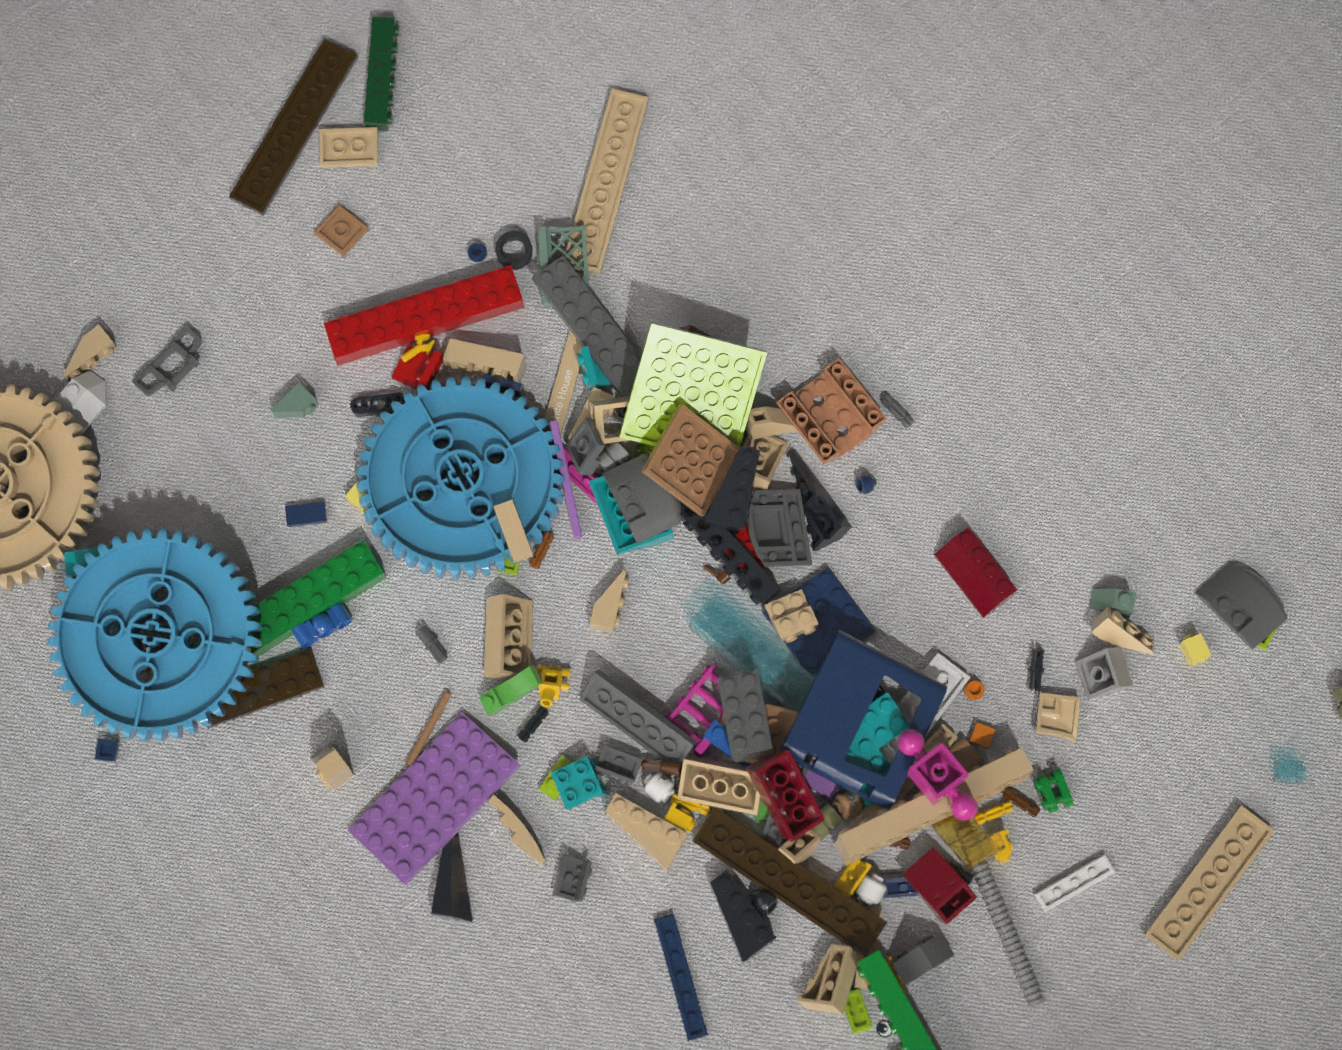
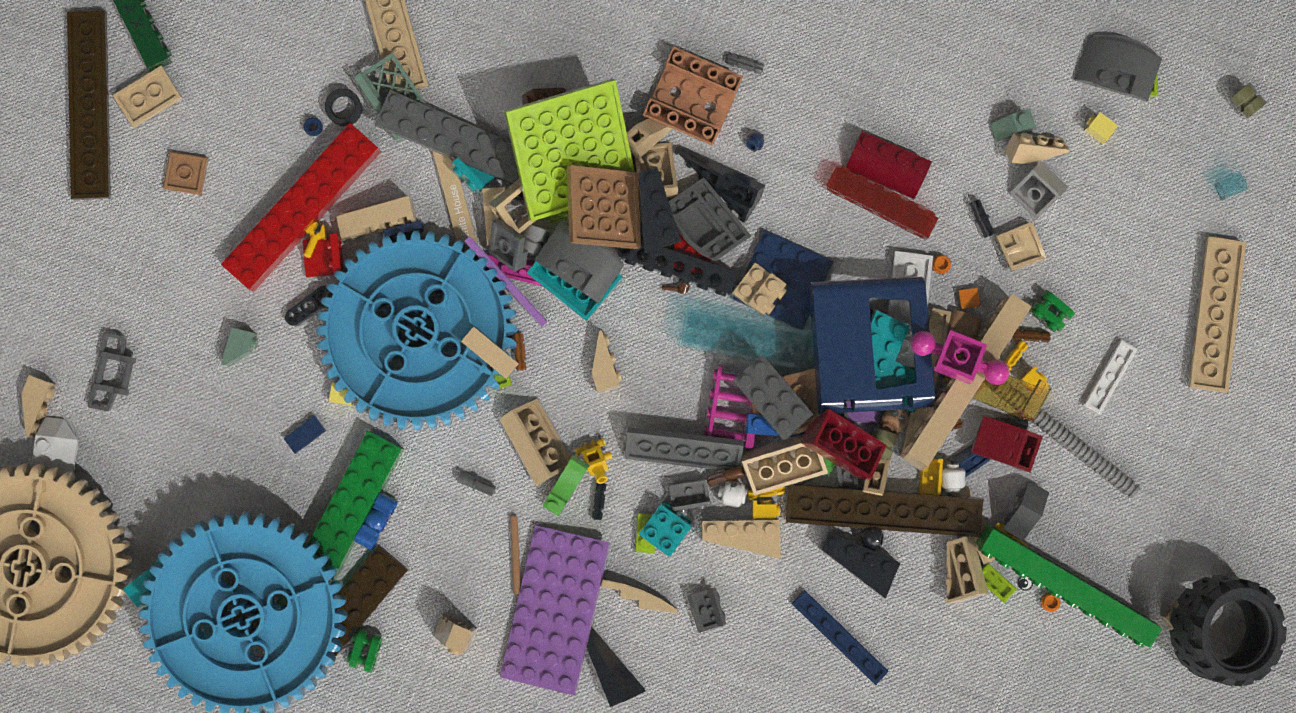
camera: 30 degrees left, 10 degrees up
(230, 735) = (360, 640): none -> green brick
(950, 603) = (881, 203): none -> clear red brick

